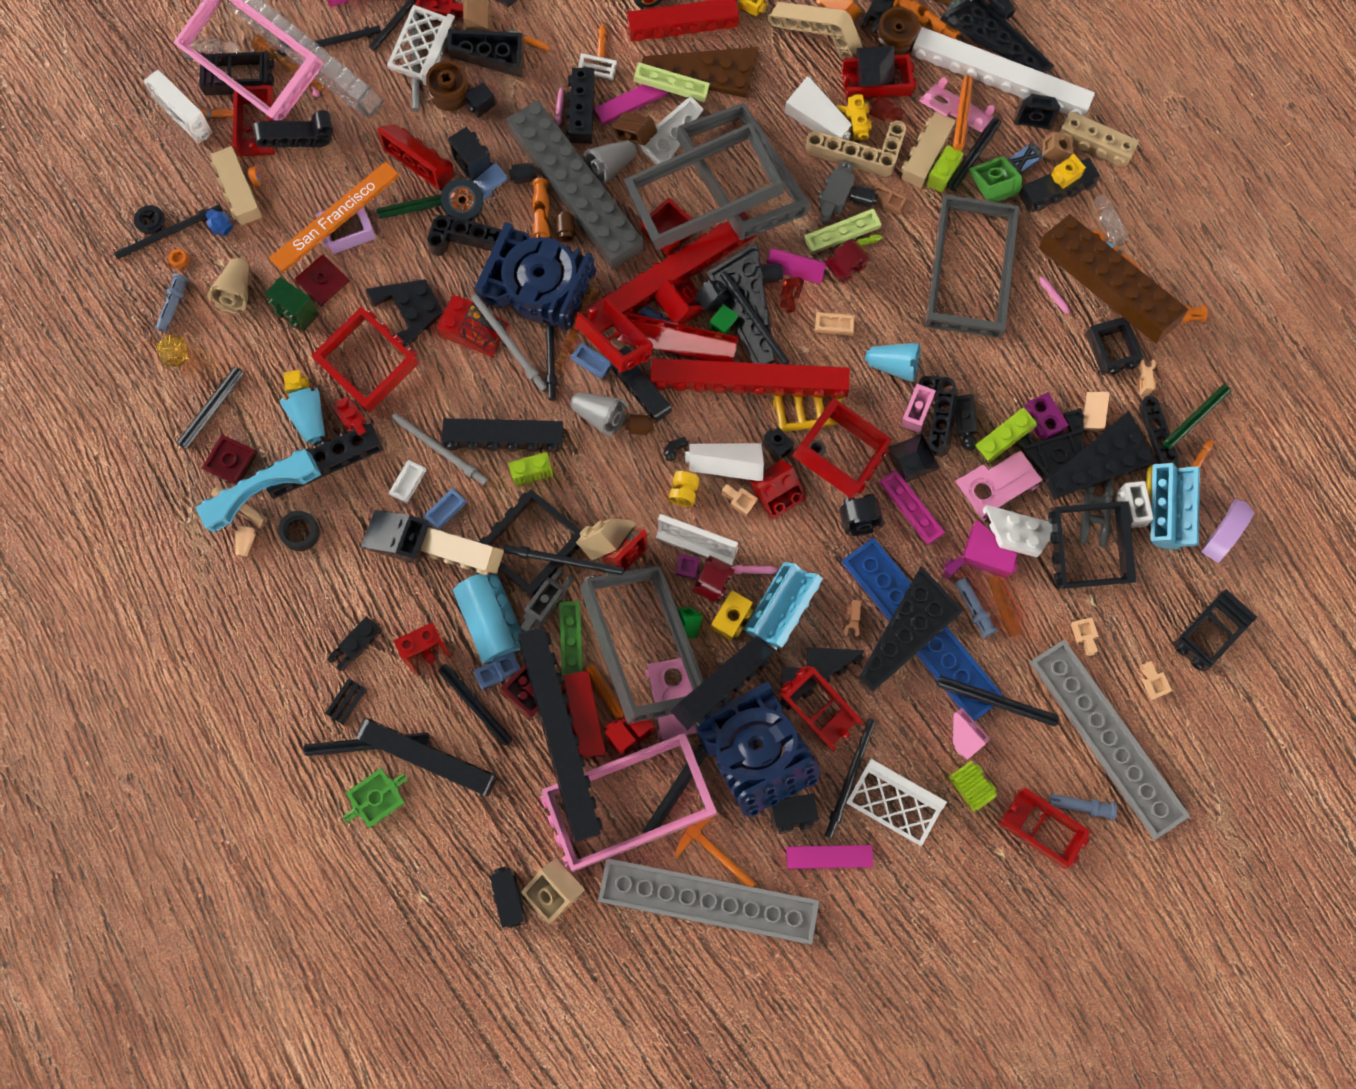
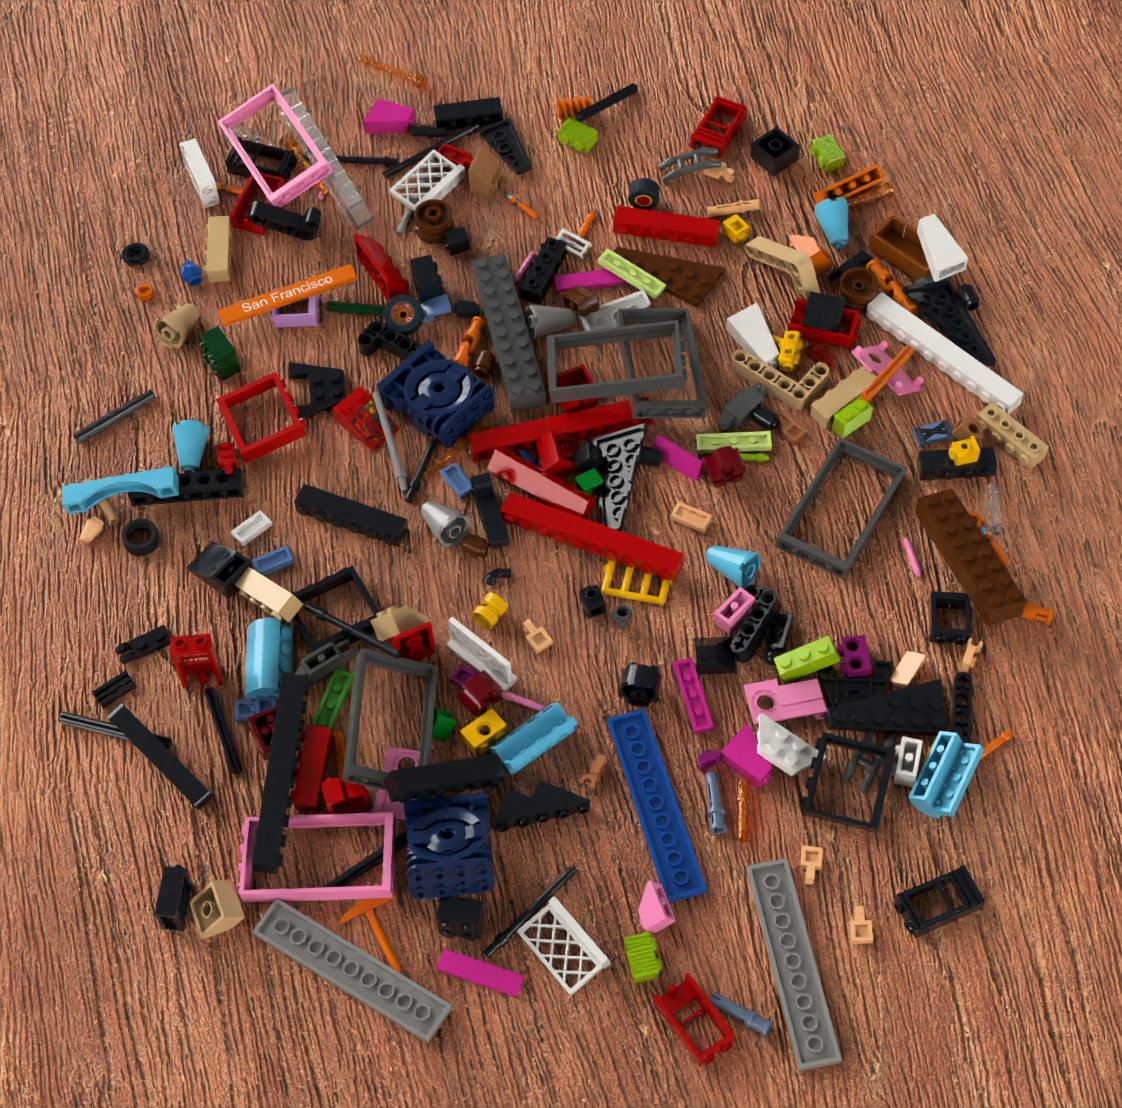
camera: 25 degrees right, 15 degrees down
(172, 351) = (104, 361): clear yellow brick -> none
(173, 294) = (127, 318): sand blue pin -> none
(201, 216) = (145, 268): black bar -> none
(229, 460) = (110, 461): dark red plate -> none
(254, 176) = (238, 246): orange tile -> none
(295, 381) = (194, 413): yellow brick -> none
(321, 280) = (255, 344): dark red plate -> none
(375, 798) = (101, 776): bright green plate -> none
(469, 470) = (308, 535): light grey bar -> none
(488, 49) = (482, 202): black wedge -> none
(530, 469) = (361, 551): lime brick -> none
(609, 317) = (485, 446): red door -> none
(728, 460) = (538, 598): white slope -> none
(734, 289) = (609, 458): black bar -> none
(779, 489) = (575, 639): red slope -> none
(791, 290) = (663, 476): clear red plate -> none
(838, 725) = (537, 860): red door -> none
(859, 428) = (667, 603): red window -> none
(917, 620) = (646, 794): black wing -> none
(973, 154) = (887, 414): black axle -> none
(997, 179) = (897, 441): bright green slope -> none
(998, 701) = (697, 889): black axle -> none
(1037, 111) = (959, 393): black slope -> none
(1197, 416) = (1004, 704): dark green axle -> none
(1228, 531) = (989, 812): lavender arch -> none

